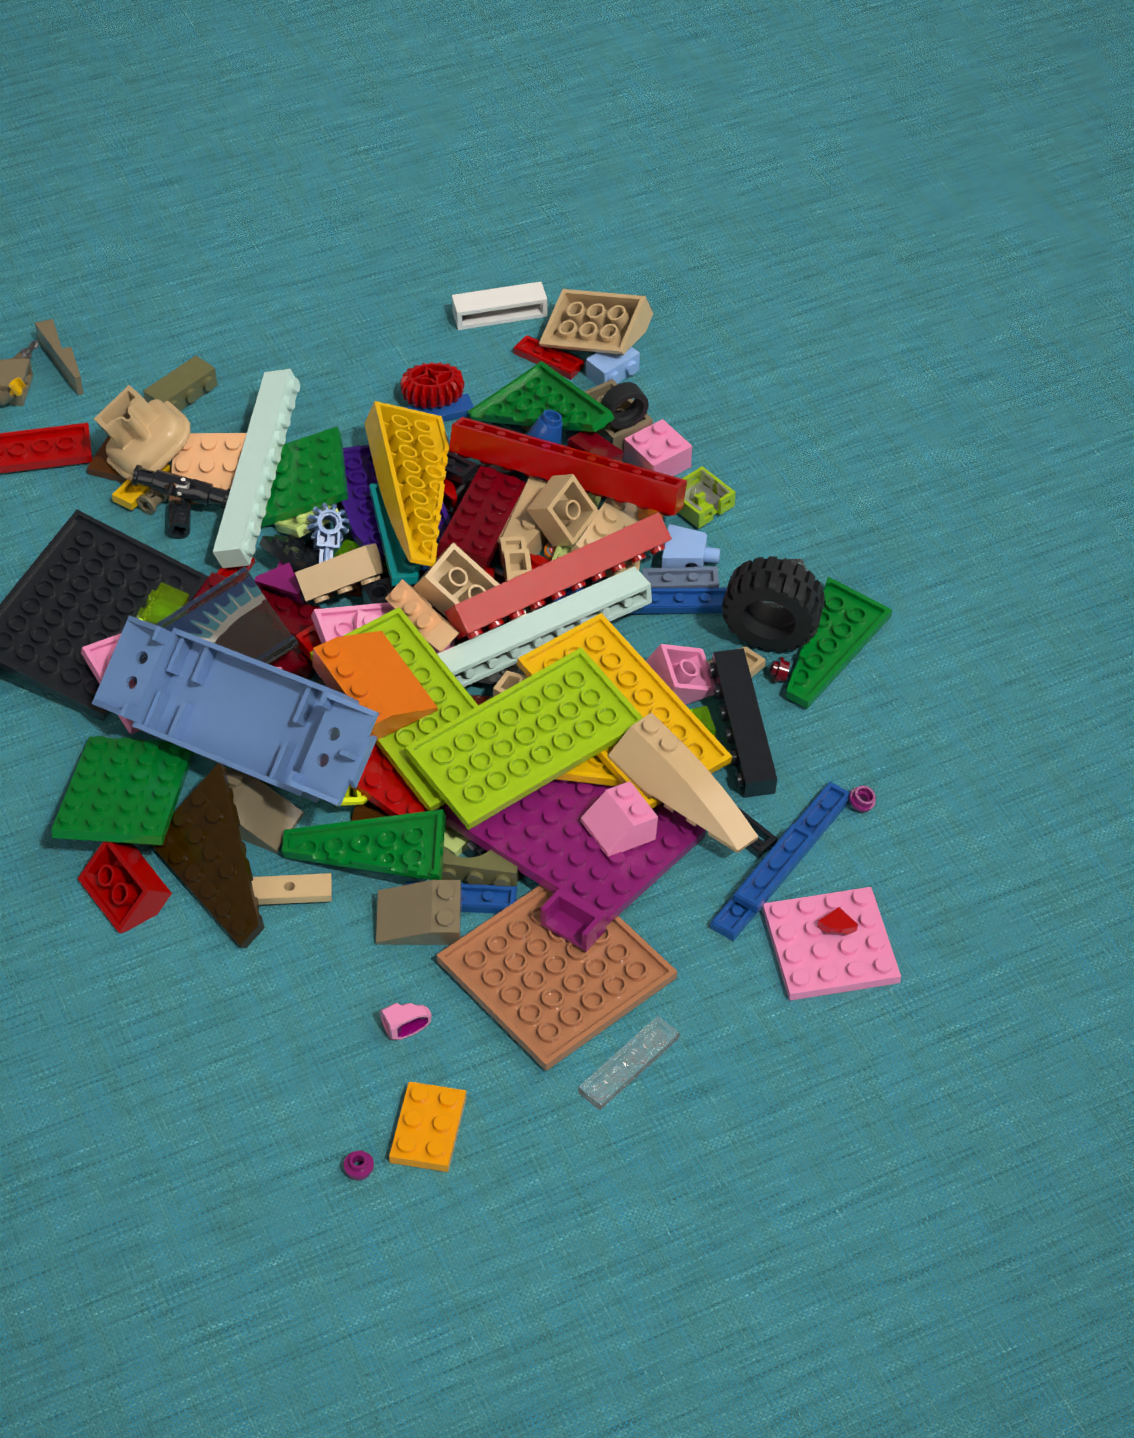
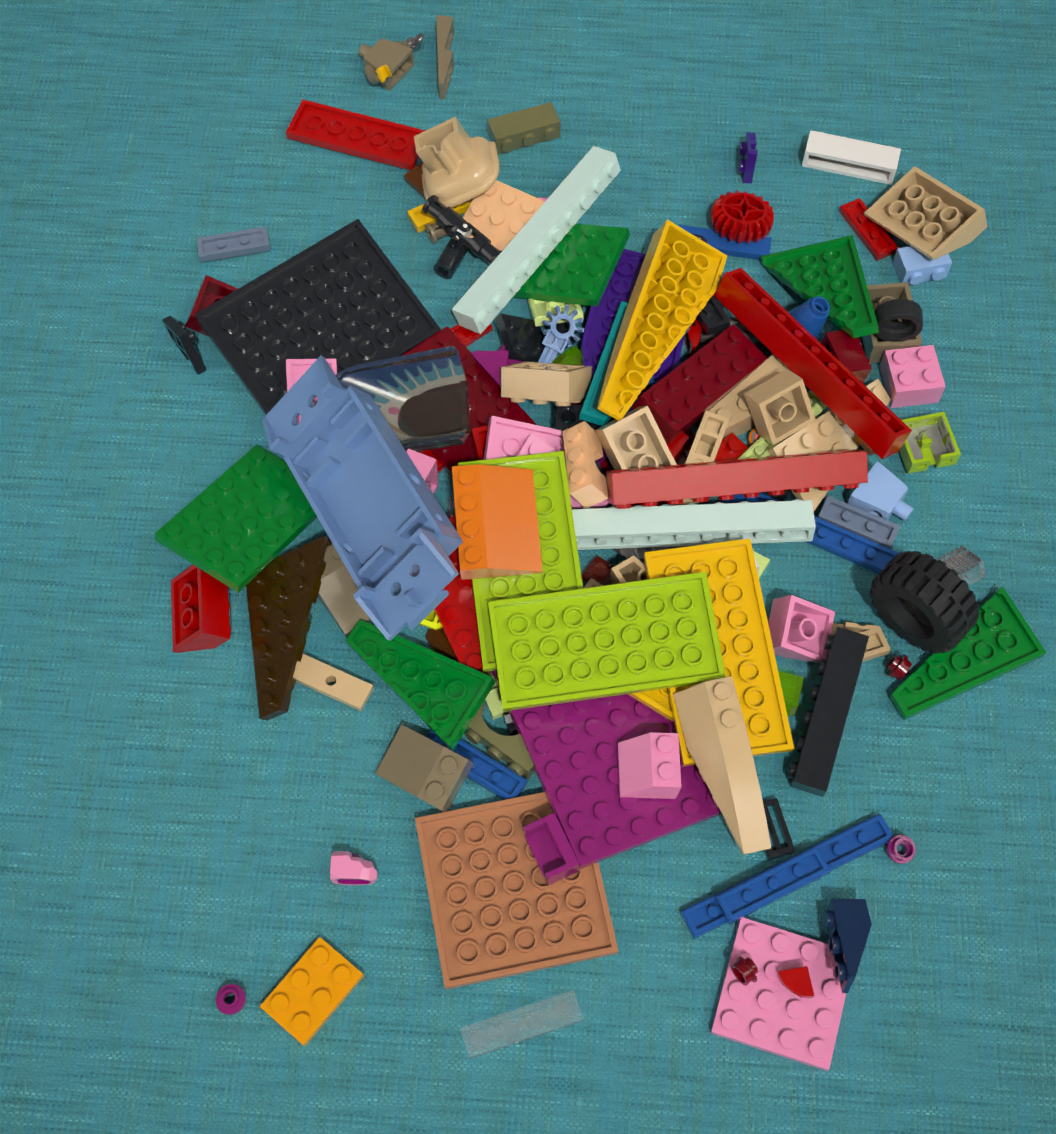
camera: 30 degrees right, 15 degrees up
(162, 603) = (380, 345): clear neon green brick -> none
(408, 335) = (749, 154): none -> dark purple wing
(790, 933) = (745, 970): none -> dark red plate
(857, 870) = (848, 931): none -> dark blue slope

